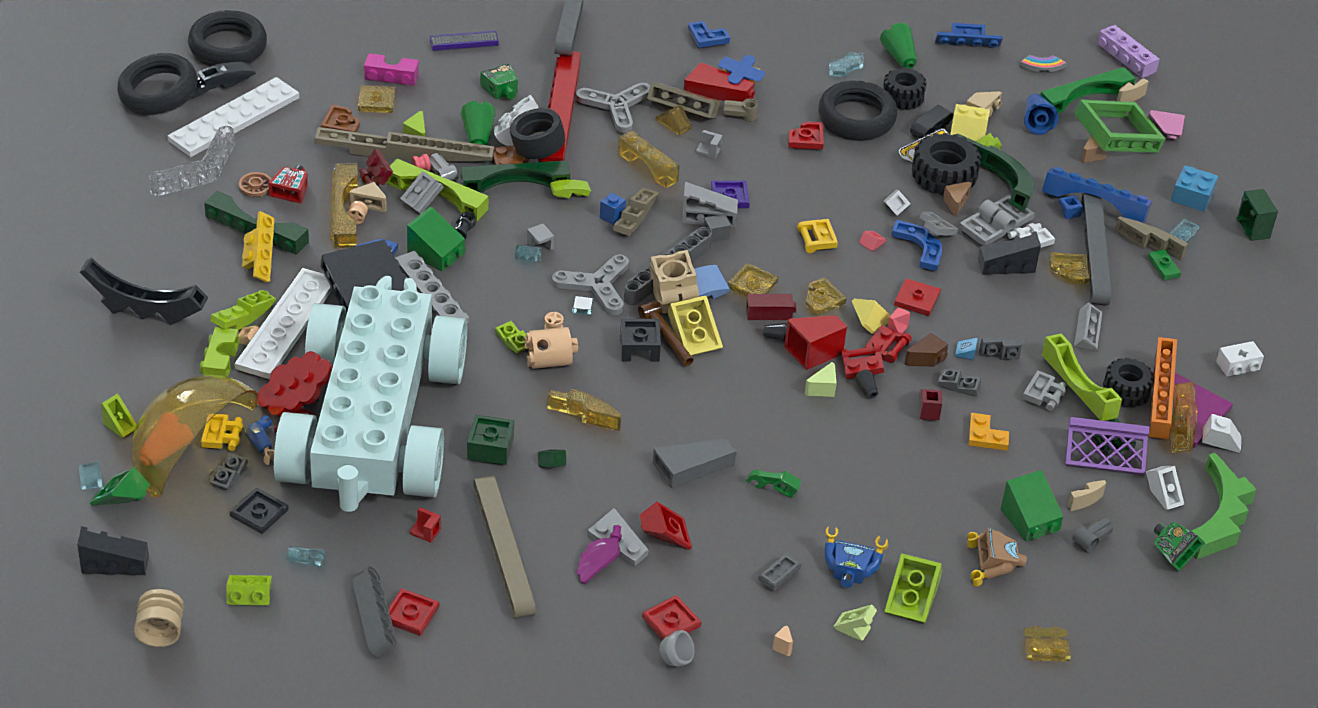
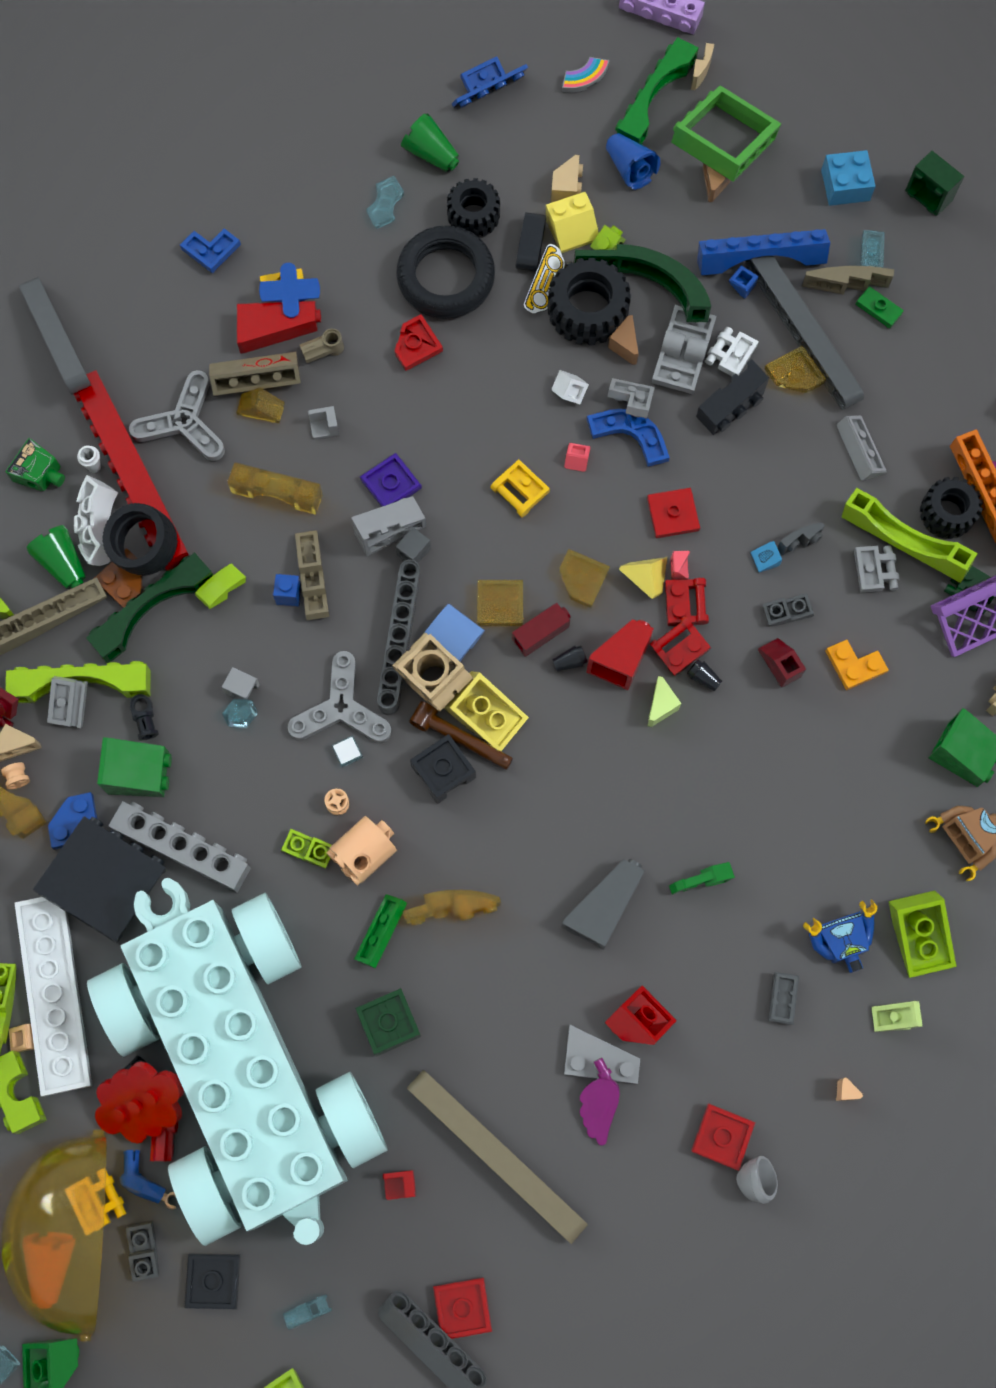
camera: 30 degrees left, 30 degrees up
(422, 162) = (33, 653): coral wheel -> none
(442, 168) = (66, 649): light grey piece -> none
(525, 399) = (380, 931): none -> green plate
(539, 90) = (89, 458): none -> white cone
(552, 458) = (462, 996): dark green slope -> none
(927, 352) = (735, 590): reddish brown slope -> none
(1167, 123) = (768, 94): bright pink slope -> none

